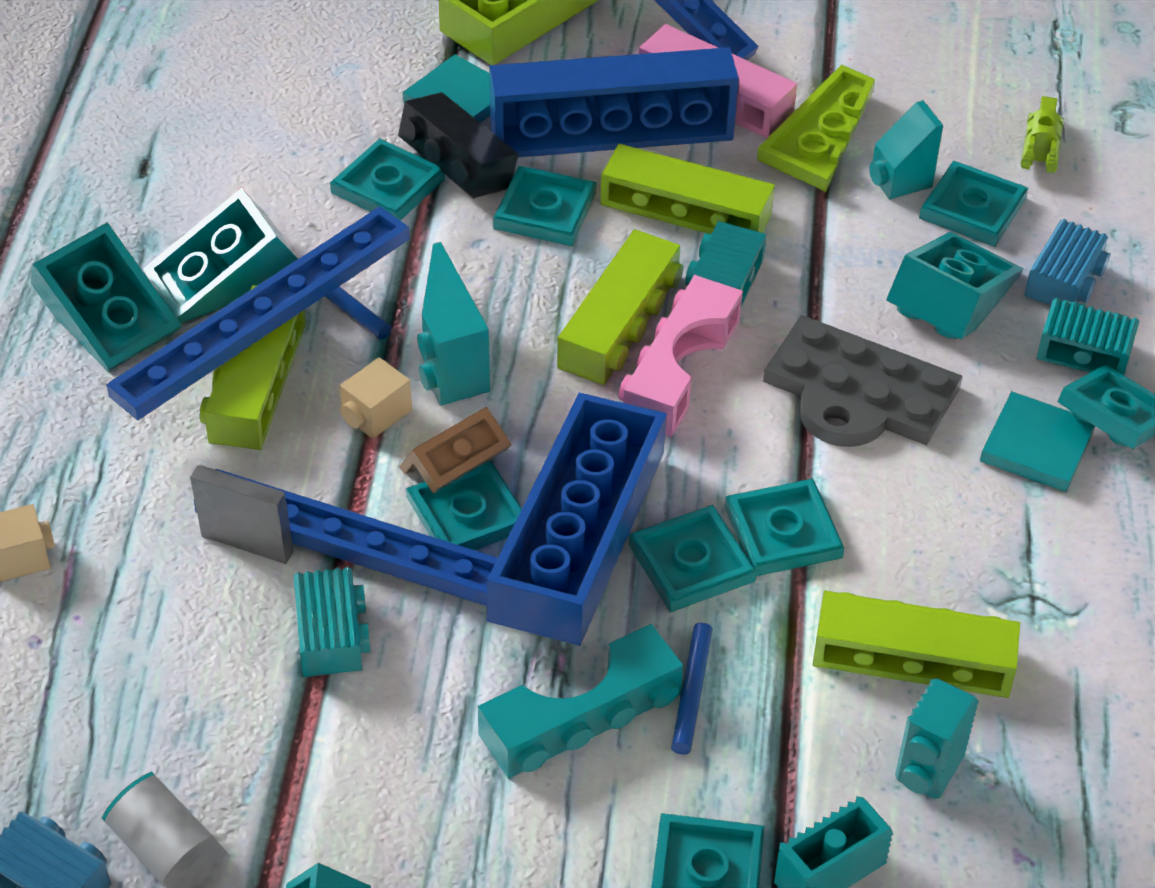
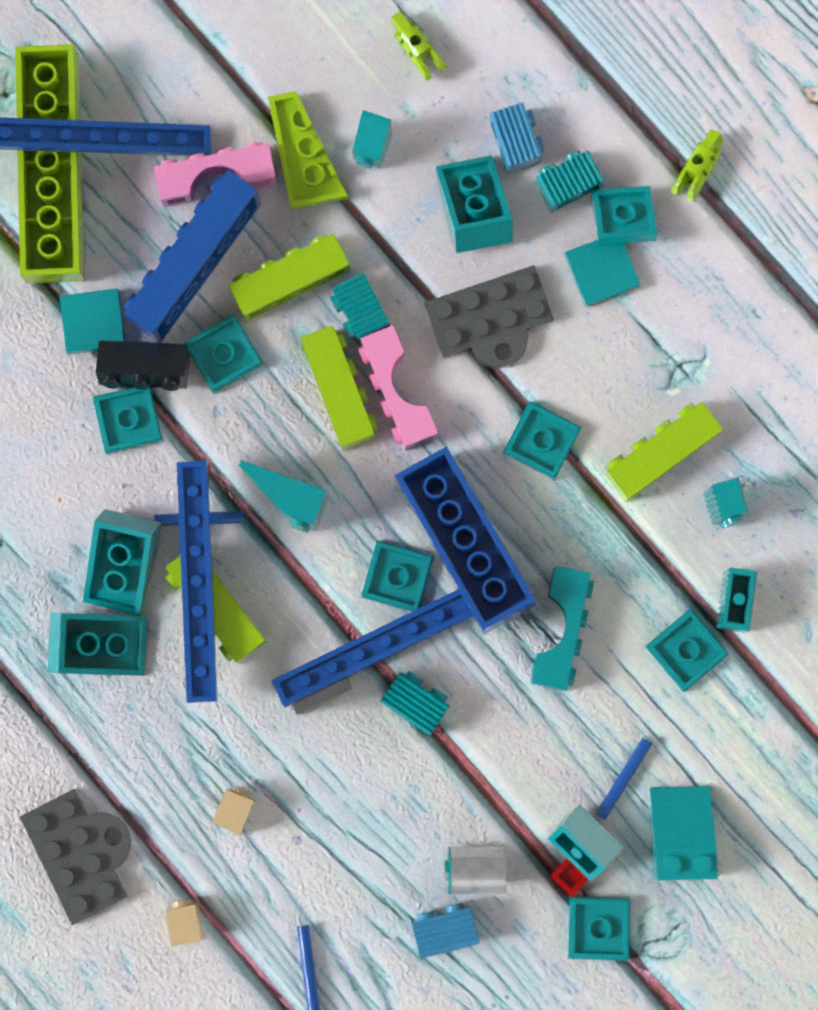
camera: 45 degrees left, 35 degrees up
(375, 398) = (291, 565): tan brick -> none
(458, 450) = (363, 556): medium nougat panel -> none
(691, 558) = (521, 500): teal tile -> none
(691, 689) = (590, 567): blue bar -> none
(973, 203) = (425, 130): teal tile -> none

